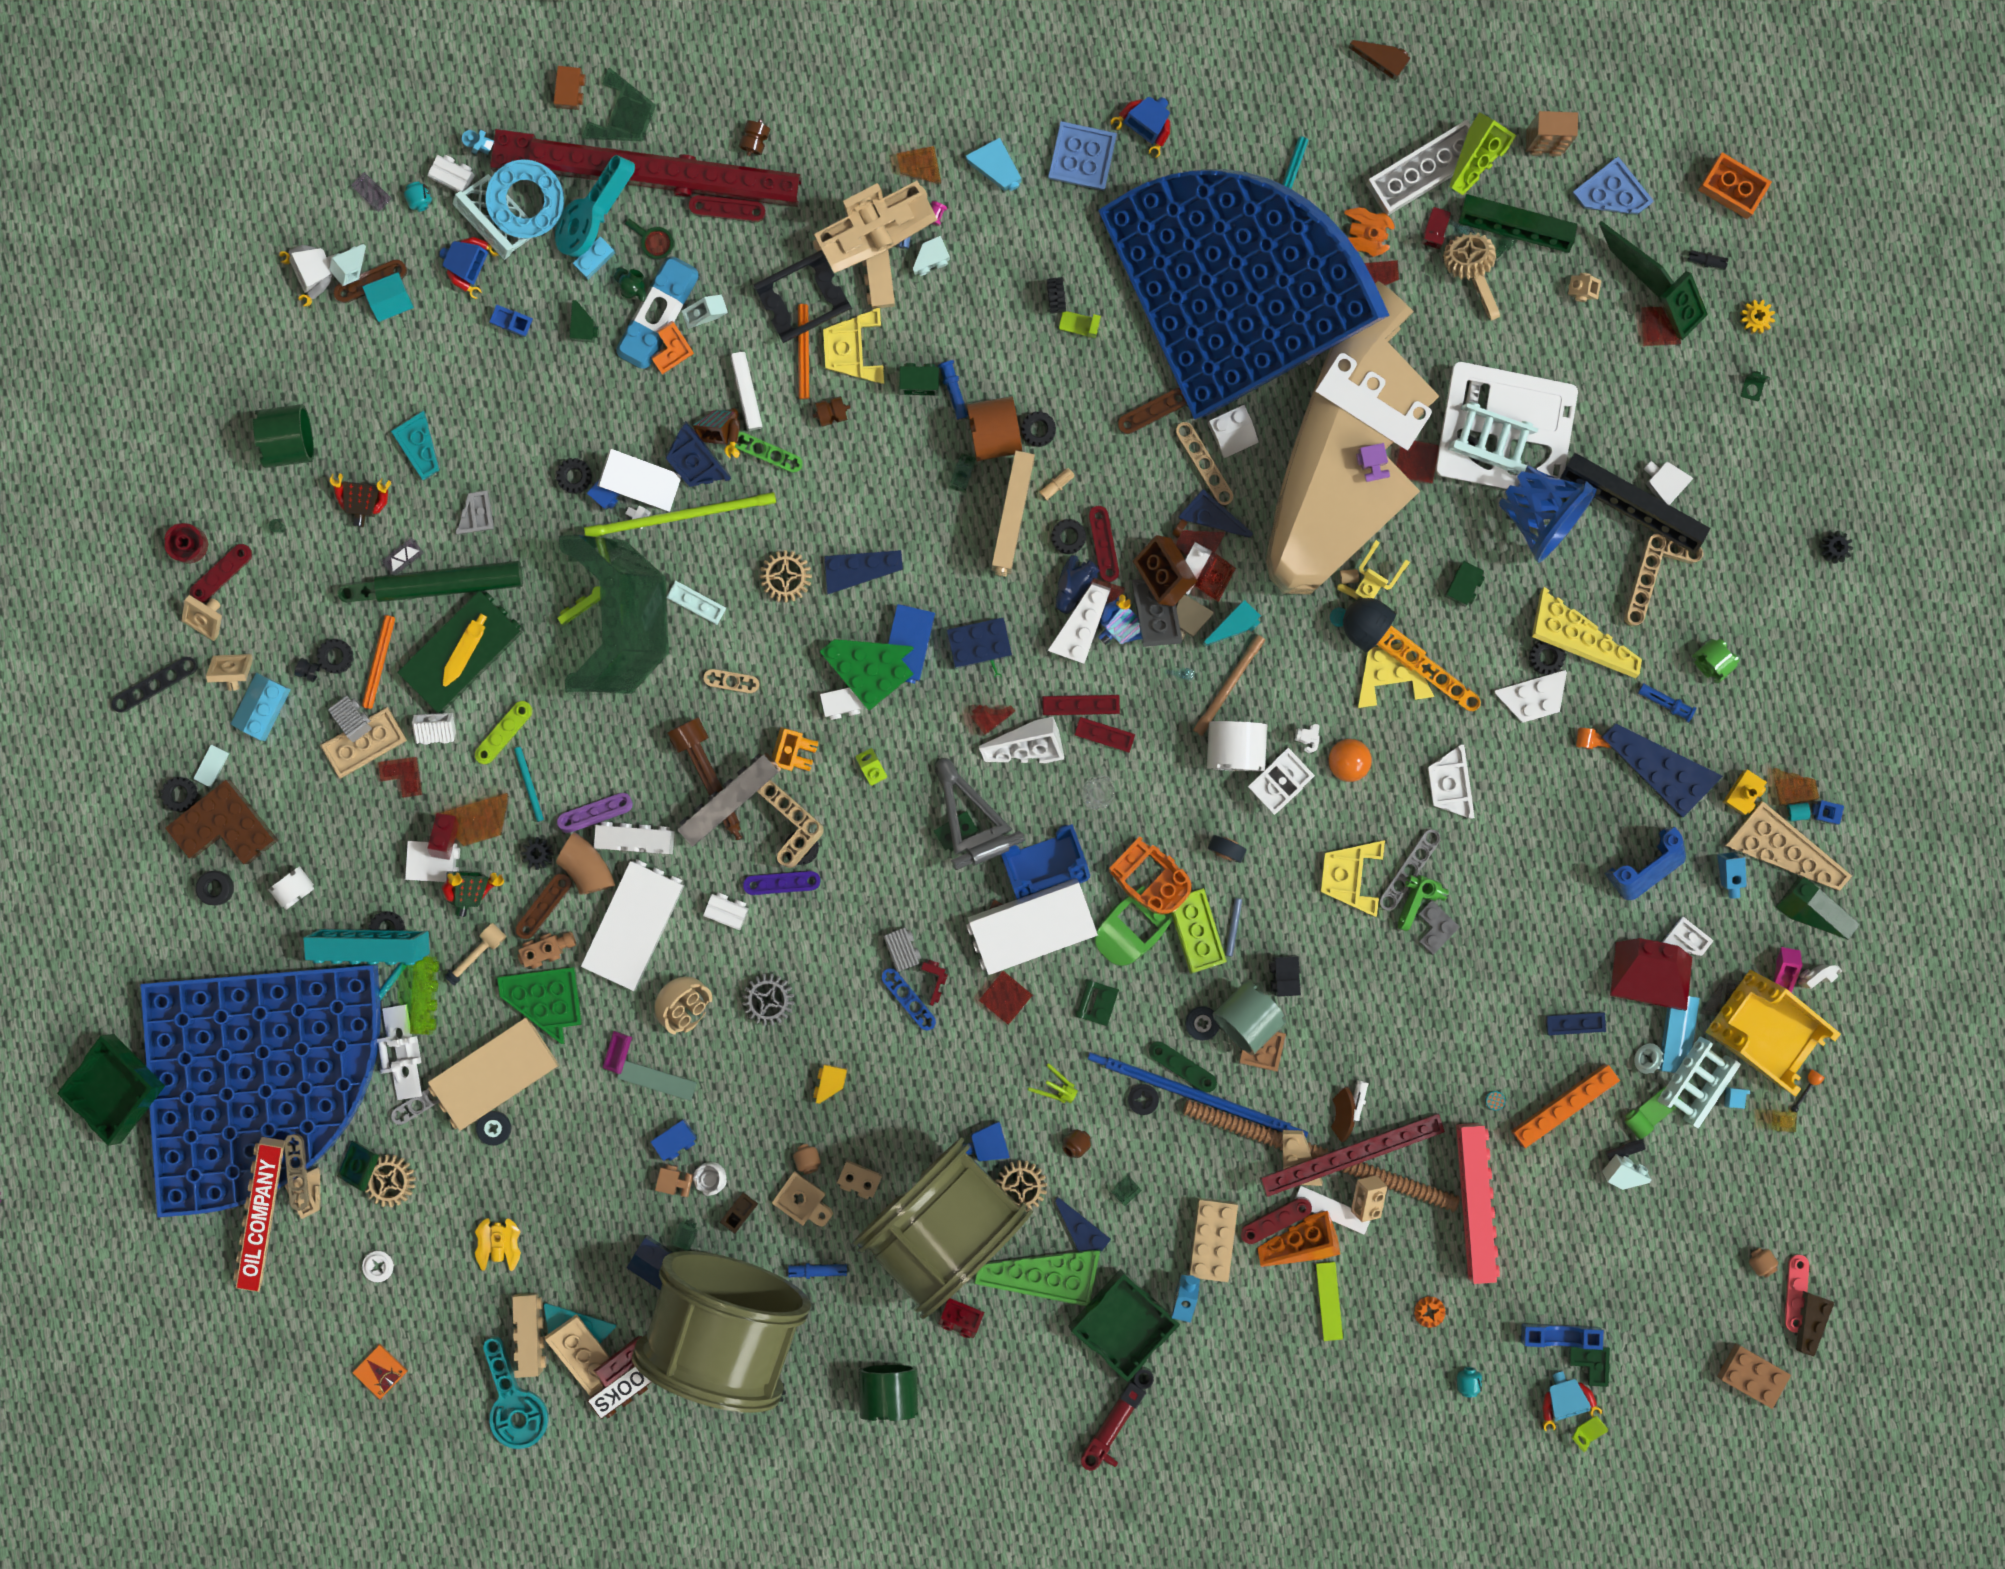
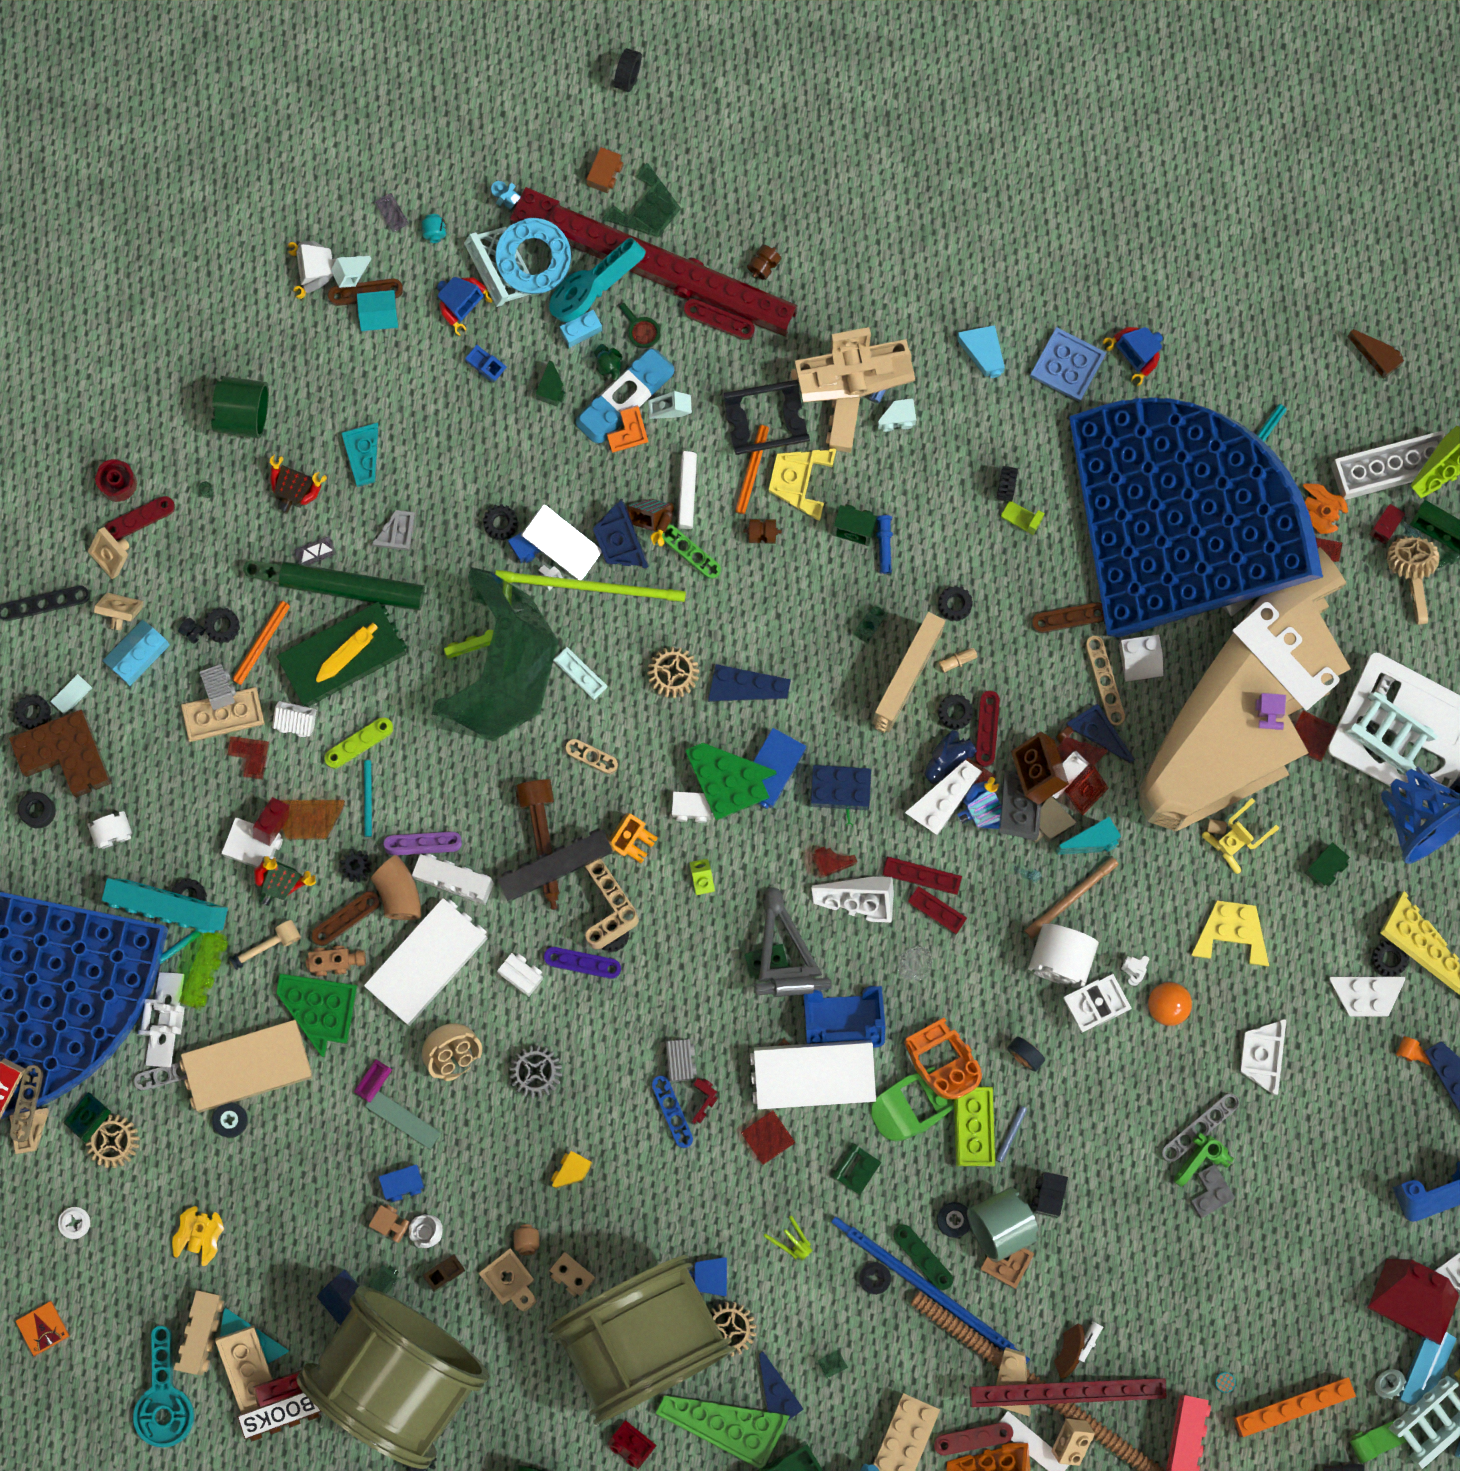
camera: 15 degrees right, 10 degrees down
(450, 174) = (470, 216): white brick -> none
(817, 1270) = (496, 1352): blue pin -> none
(920, 164) = (913, 328): clear orange wing -> none
(938, 209) = (919, 375): dark pink bush -> none
(994, 428) = (913, 588): dark orange brick -> none
(1076, 1143) = (796, 1302): reddish brown head -> none
(1336, 616) = (1196, 863): teal tile -> none
(1343, 875) = (1134, 1112): light yellow wing -> none
(1369, 624) = (1223, 875): piece -> none
(1576, 1023) = (1326, 1328): dark blue plate -> none

